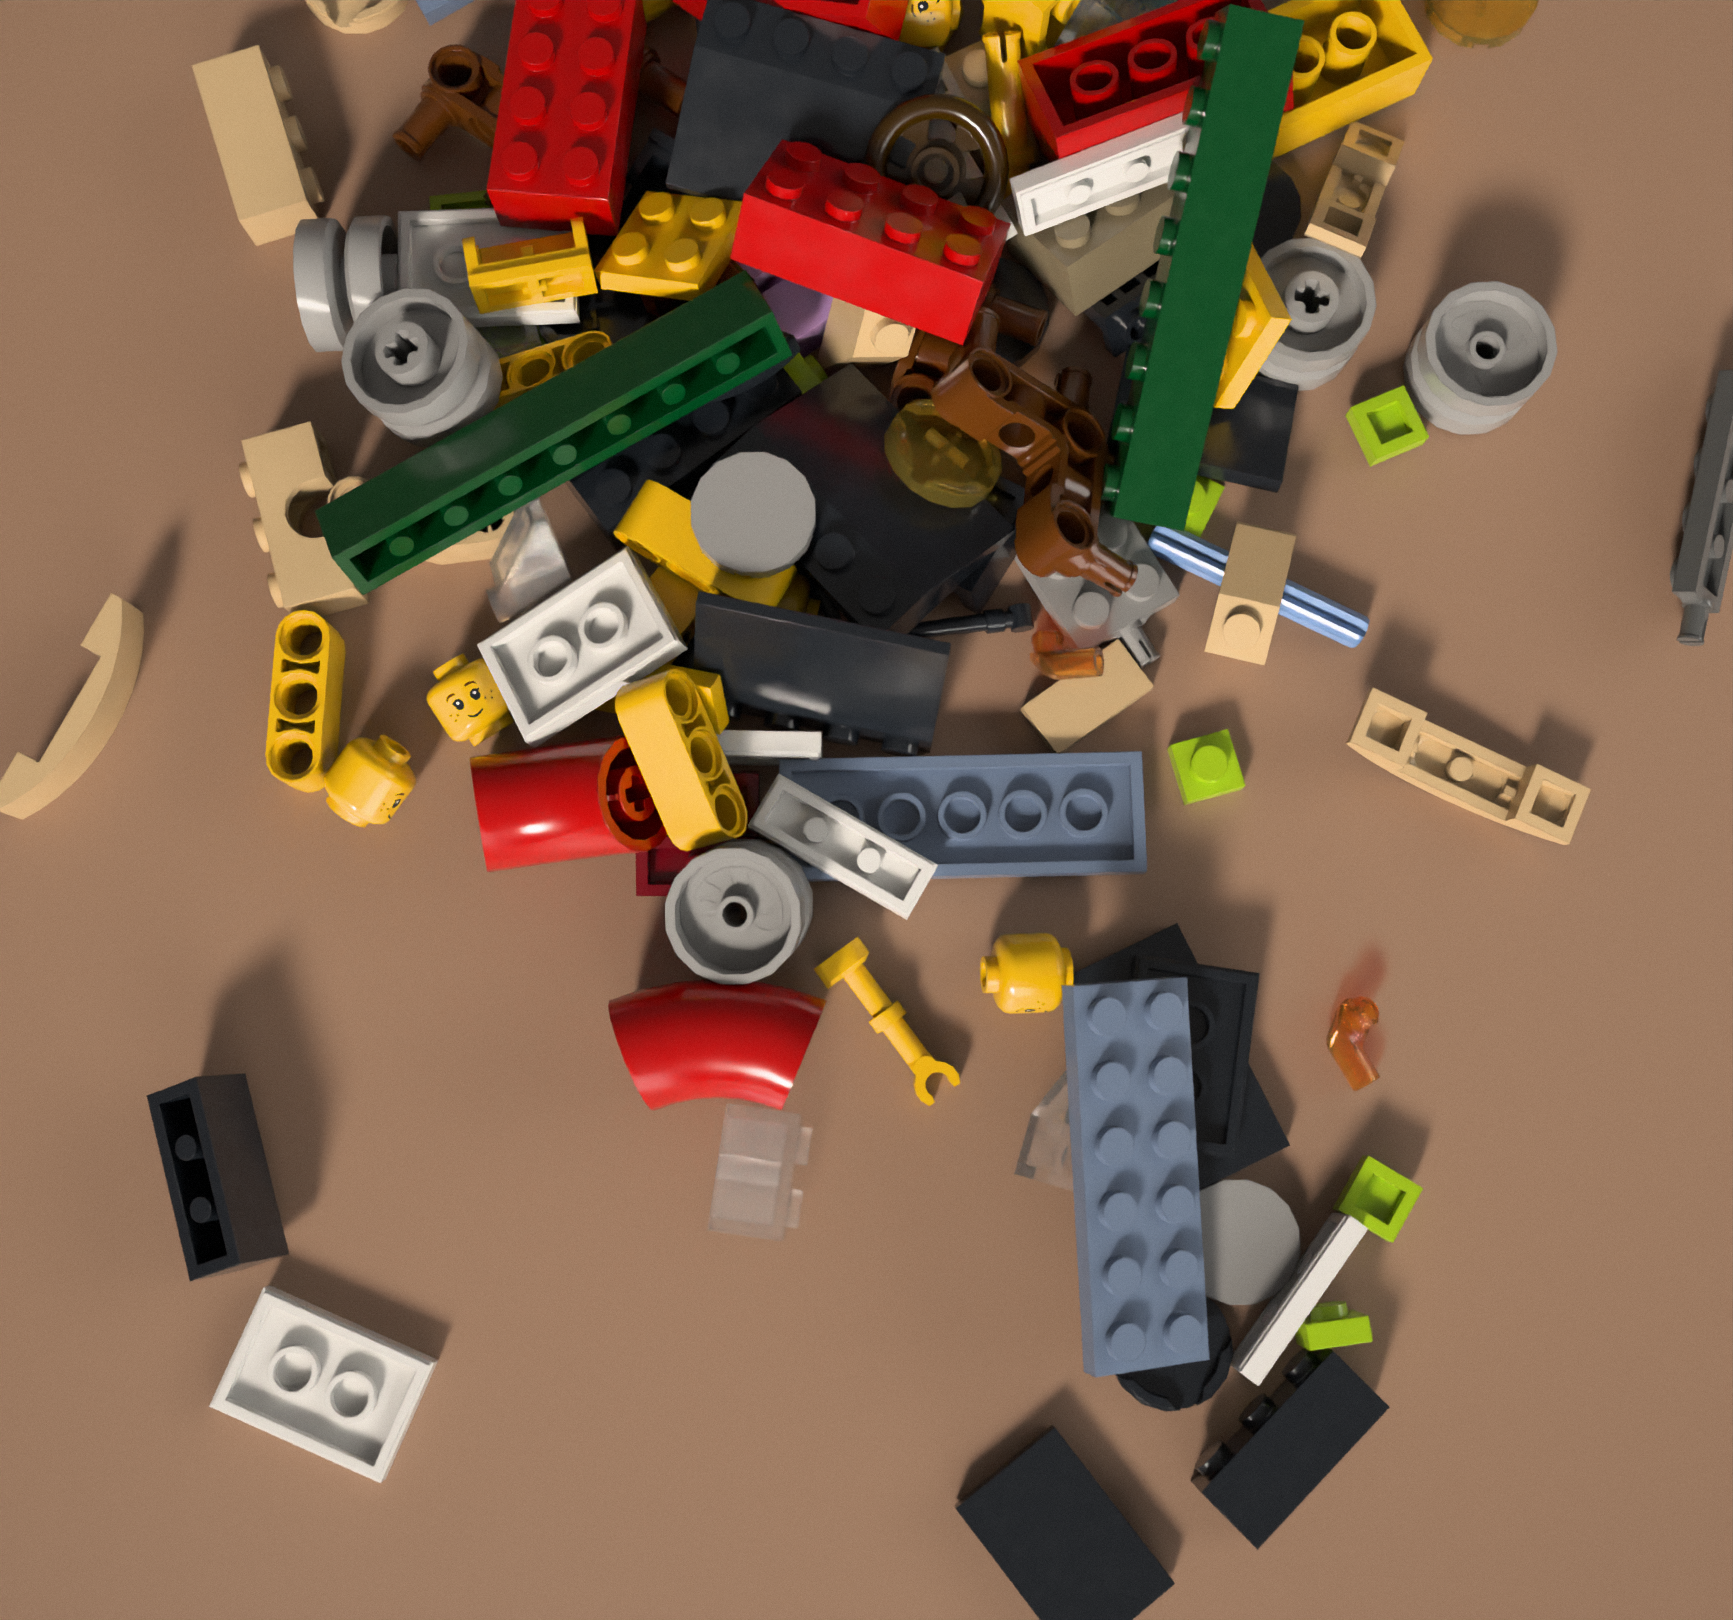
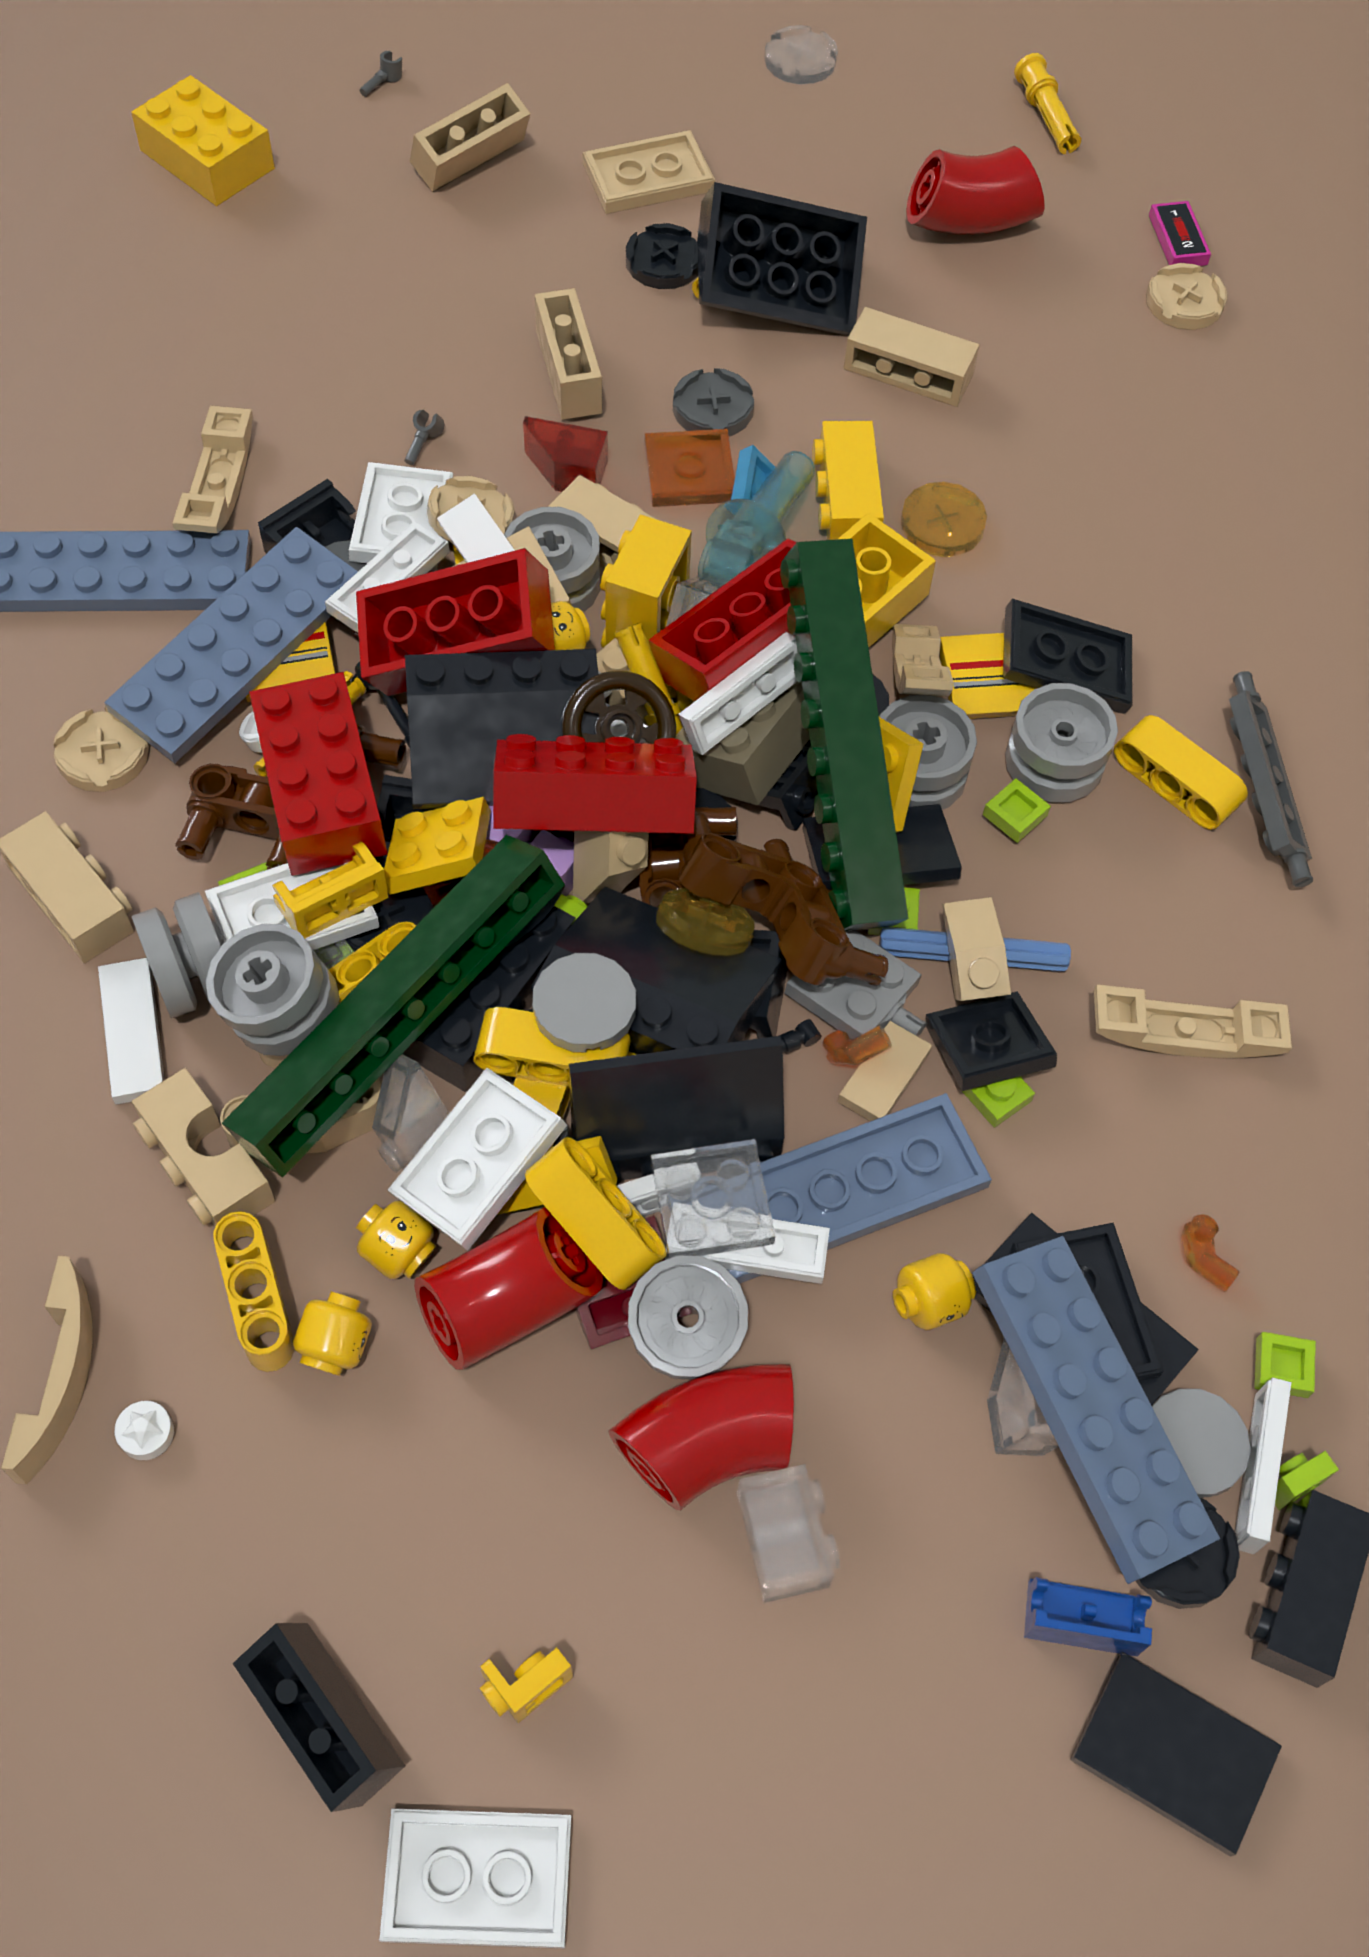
camera: 25 degrees left, 20 degrees down
(151, 809) = (144, 1430): none -> white tile
(274, 356) = (130, 1029): none -> white tile
(445, 1222) = (537, 1681): none -> yellow bracket
(816, 789) = (712, 1199): none -> clear plate
(886, 1016) = (837, 1370): yellow piece -> none
(1034, 1376) = (1087, 1617): none -> blue hinge
(1221, 708) = (990, 1041): none -> black tile
(1437, 230) = (978, 676): none -> yellow slope
(1546, 240) = (1060, 648): none -> black tile
(1612, 445) = (1180, 772): none -> yellow beam

